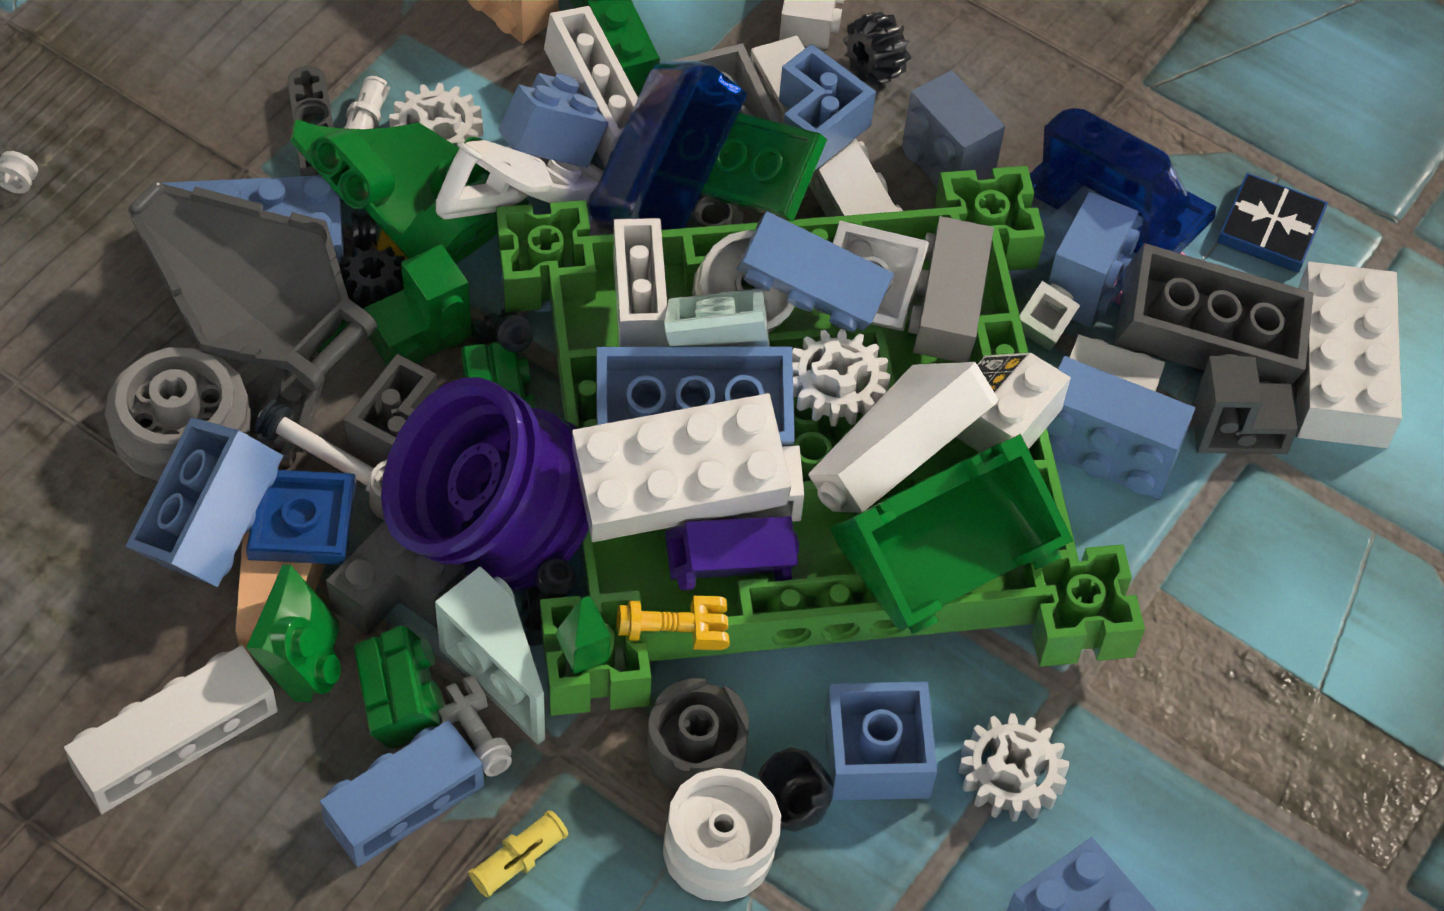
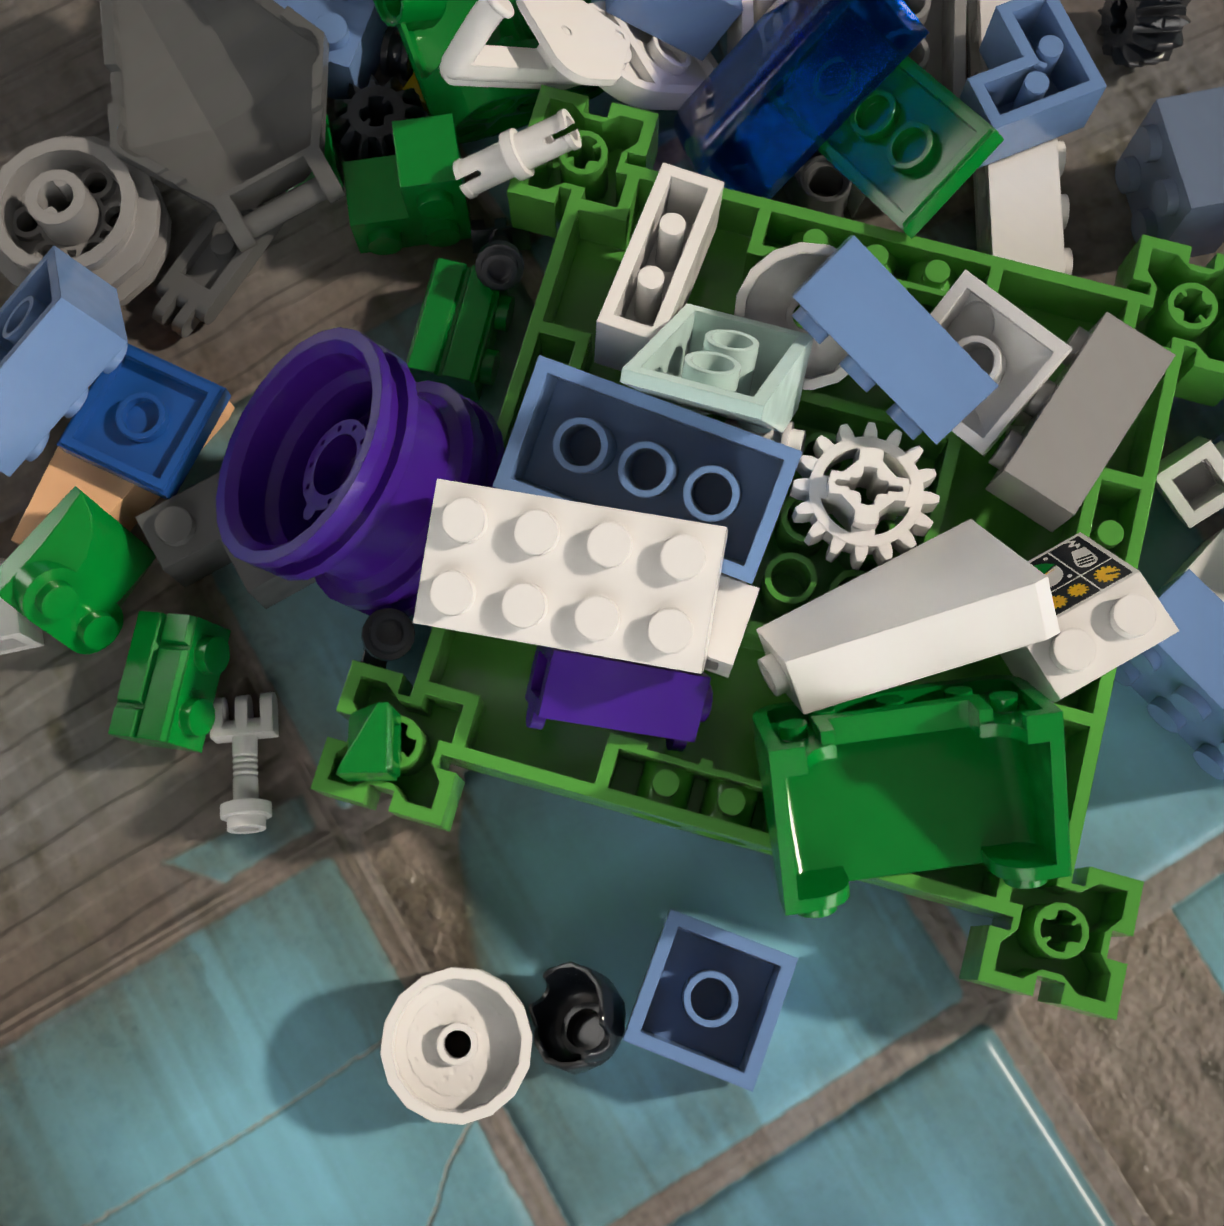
camera: 30 degrees right, 20 degrees up
(275, 421) = (175, 278): white piece -> none
(386, 407) = (320, 298): dark grey brick -> none
(402, 792) = (118, 818): medium blue brick -> none
(487, 640) = (295, 678): light aqua slope -> none
(504, 251) = (517, 154): none -> white pin
(518, 853) = (222, 951): light yellow pin -> none
(696, 731) = (460, 871): dark grey brick -> none
(704, 621) = (528, 777): yellow hinge -> none
(1013, 768) = (894, 1097): white gear -> none

